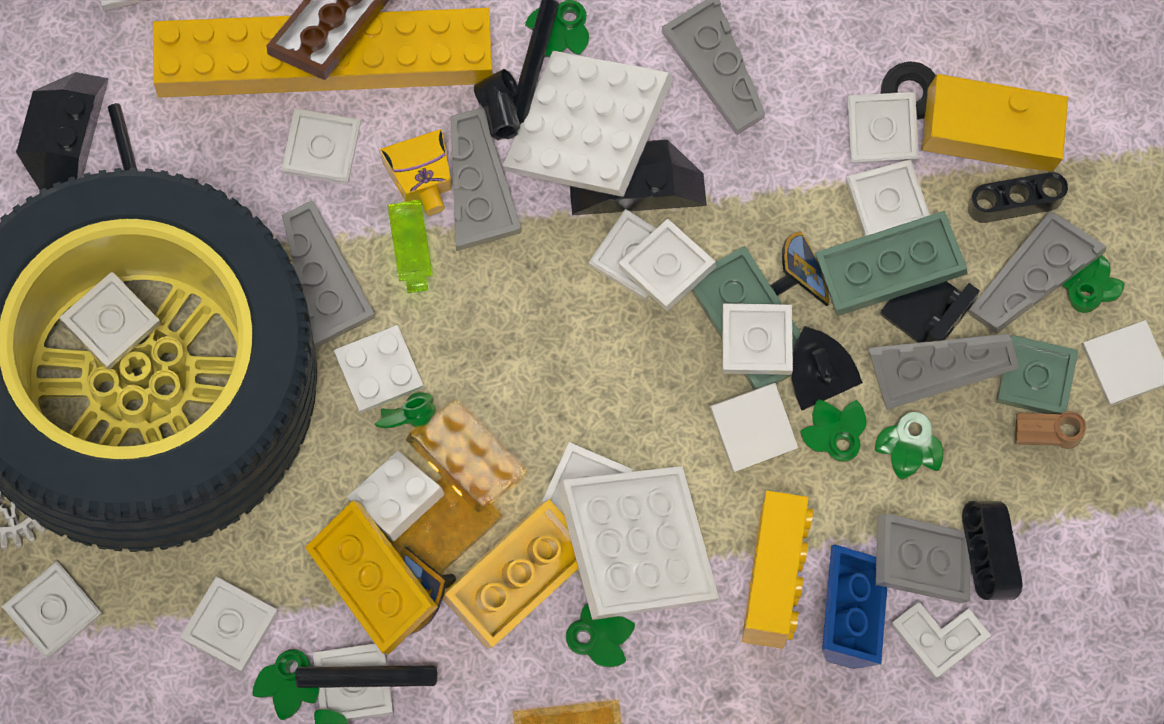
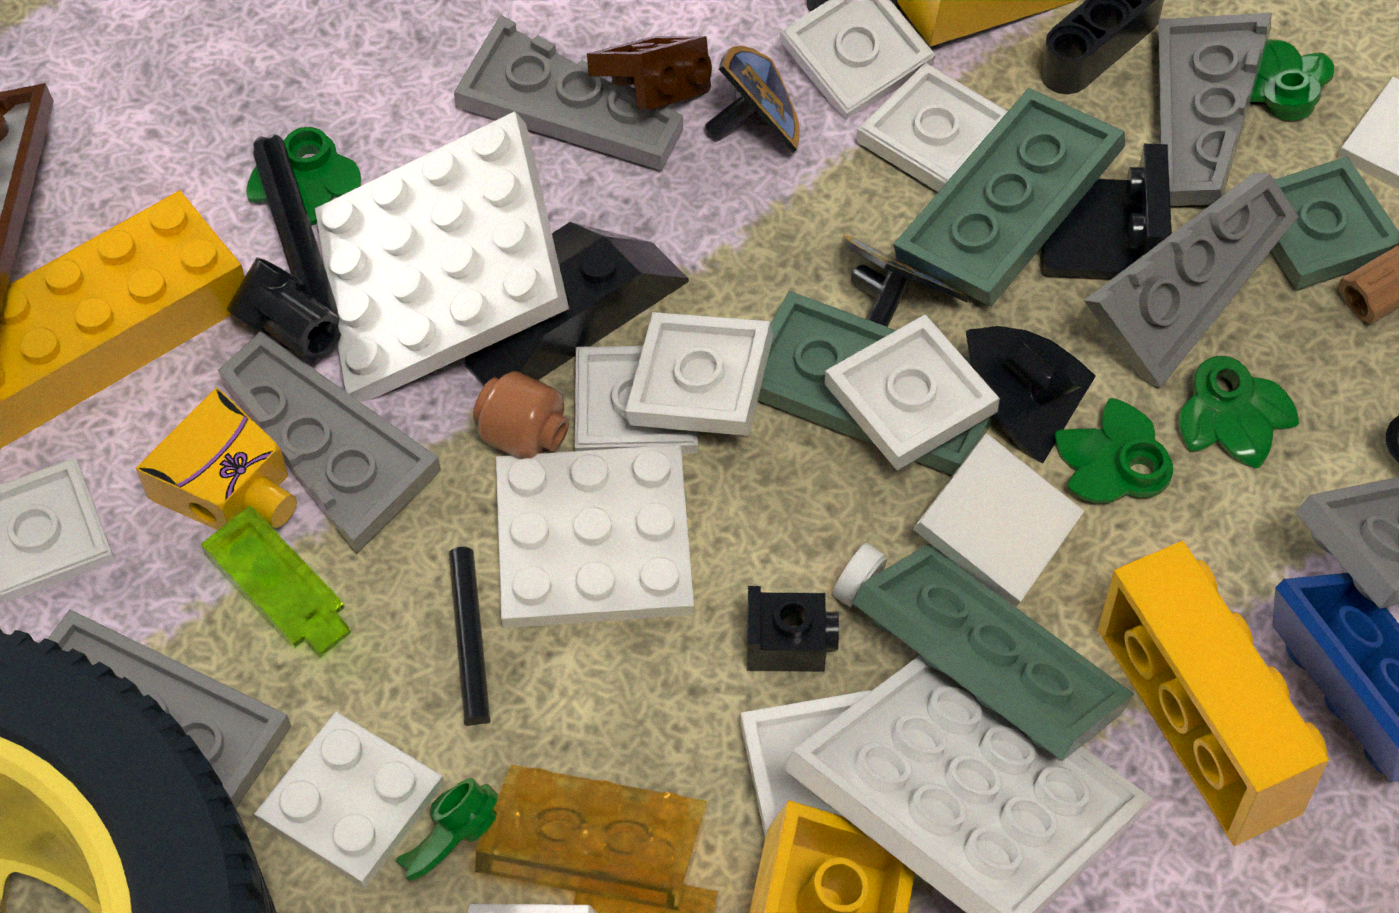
camera: 30 degrees left, 15 degrees down
(479, 325) = (469, 637): none -> black bar
(567, 311) = (593, 536): none -> white plate
(572, 231) = (520, 415): none -> nougat head
(620, 430) = (778, 645): none -> black brick
(670, 412) = (863, 566): none -> white tile
(699, 487) = (993, 650): none -> sand green plate
(769, 77) = (659, 67): none -> reddish brown bracket
(812, 124) = (757, 91): none -> shield

